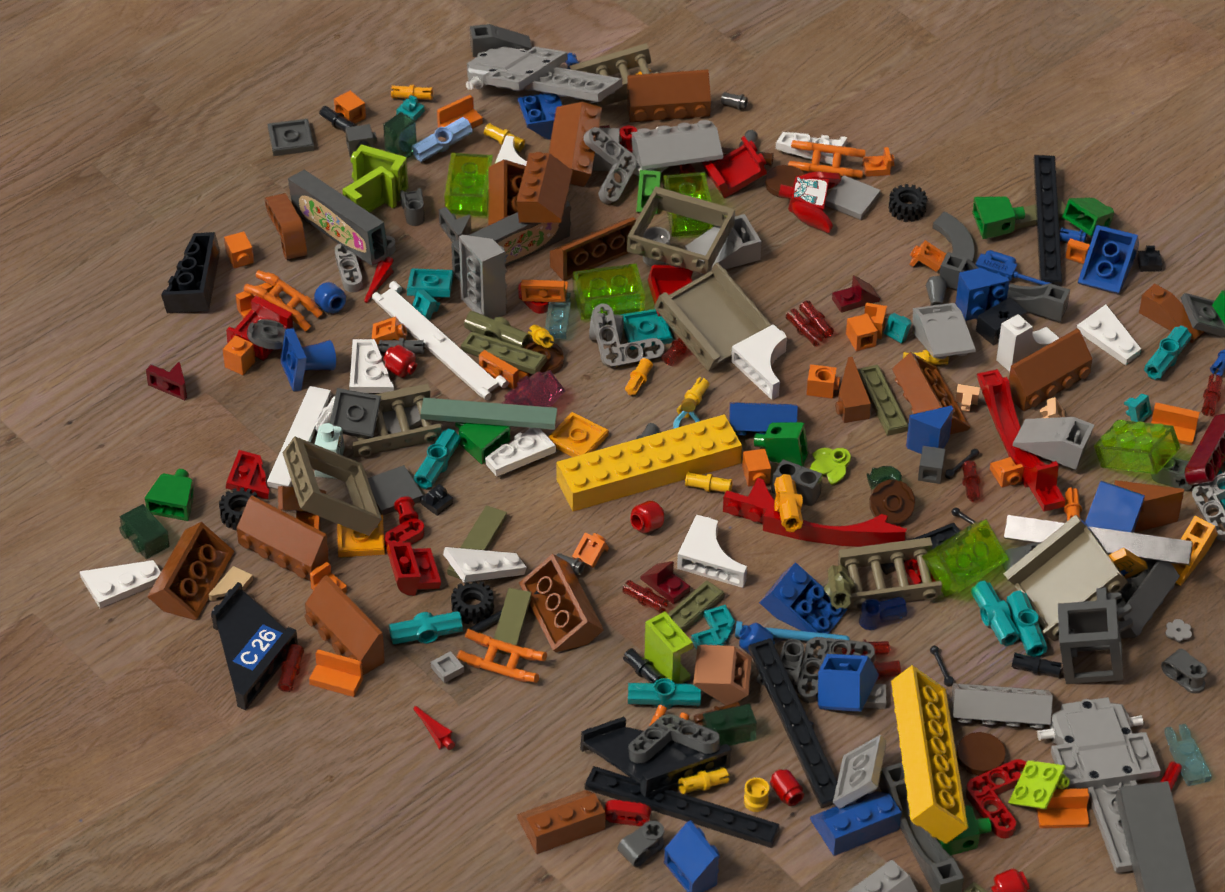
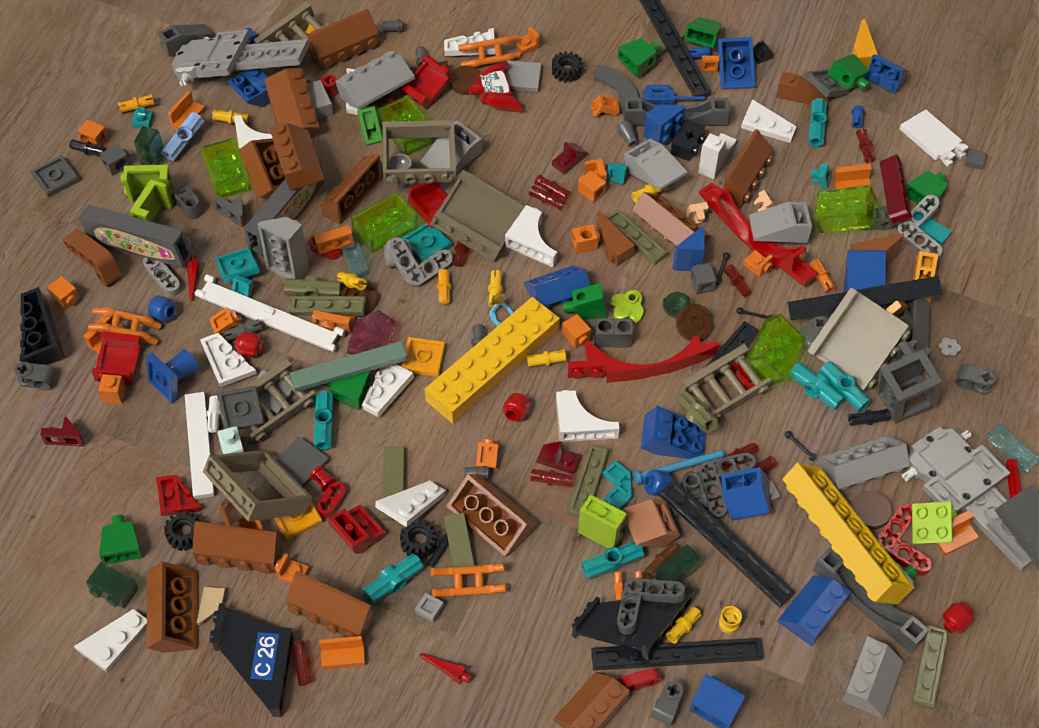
camera: 25 degrees left, 10 degrees up
(170, 316) = (35, 376): none -> dark grey piece
(266, 334) = (128, 362): dark grey tile -> none
(437, 500) = (341, 457): black tile -> none
(617, 160) = (335, 111): light grey beam -> none
(642, 666) = (583, 542): black pin -> none
(787, 787) = (748, 602): red brick -> none
(788, 503) = (623, 355): light orange piece -> none
(860, 772) = (801, 568): light grey plate -> none
(877, 612) = (735, 418): clear blue piece -> none

